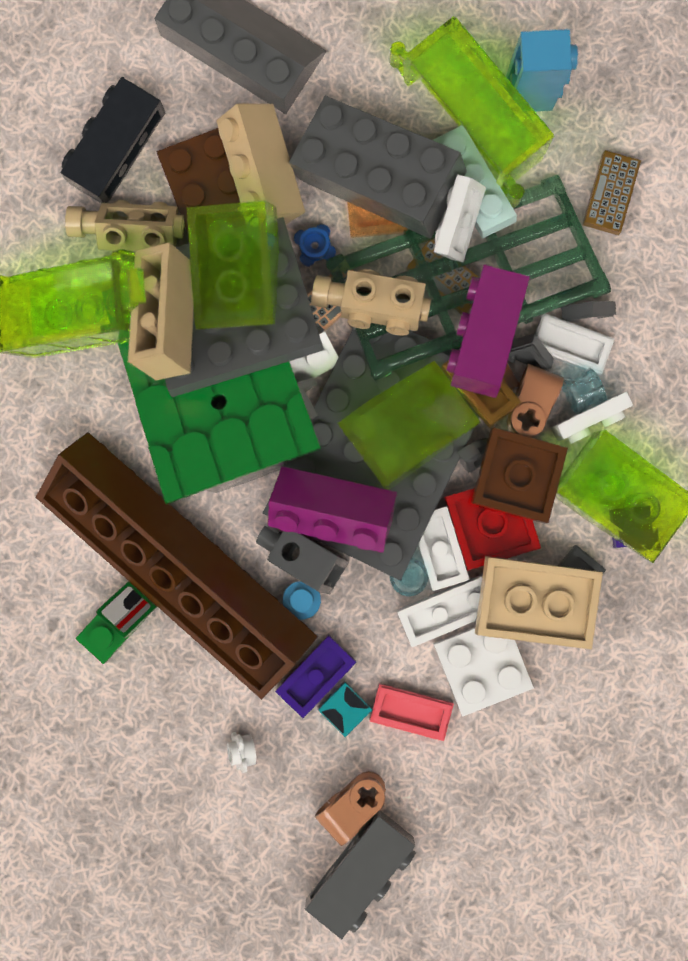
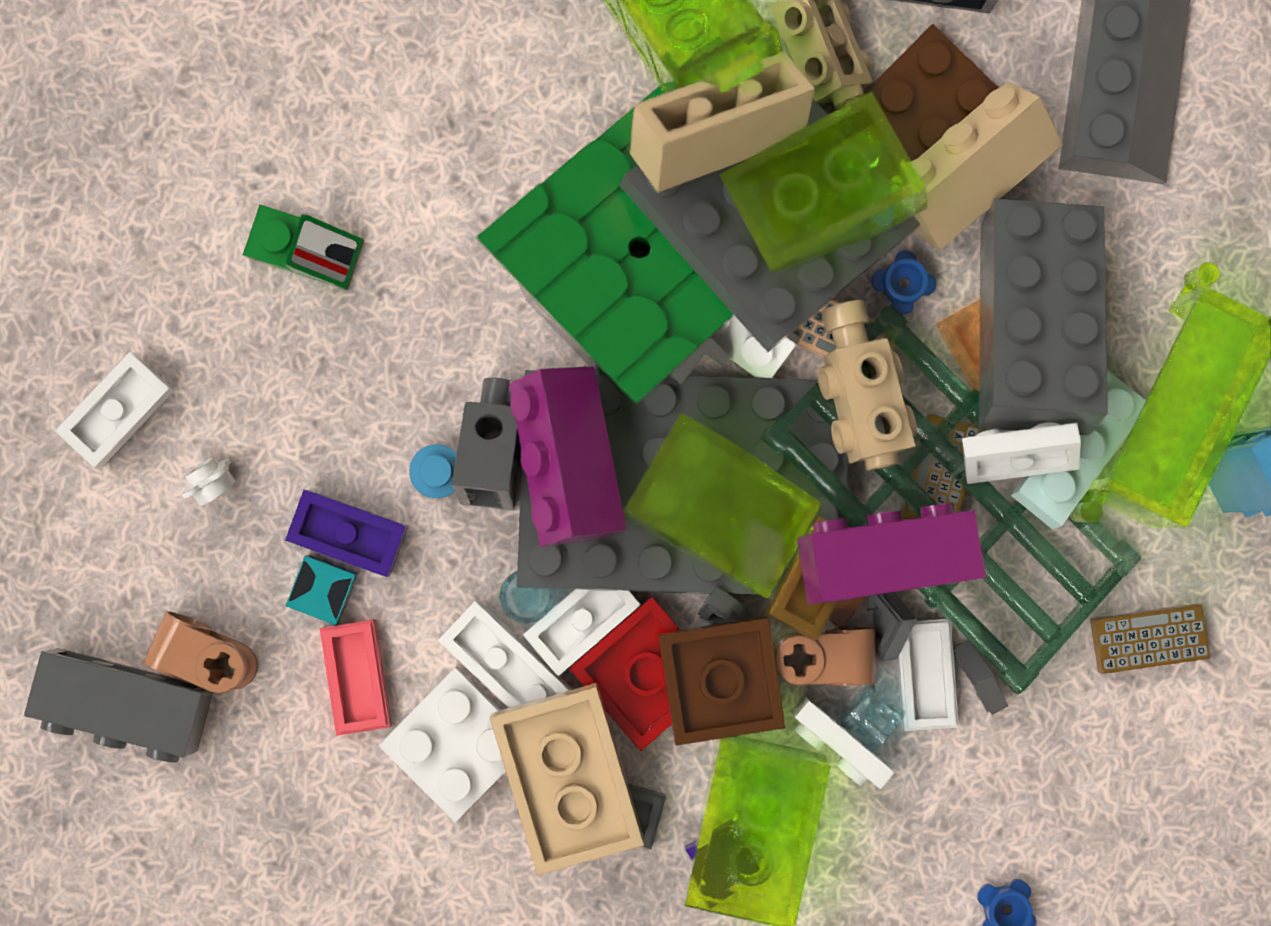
camera: 65 degrees right, 0 degrees up
(167, 793) = (114, 410): none -> white plate
(174, 565) = (409, 288): reddish brown slope -> none

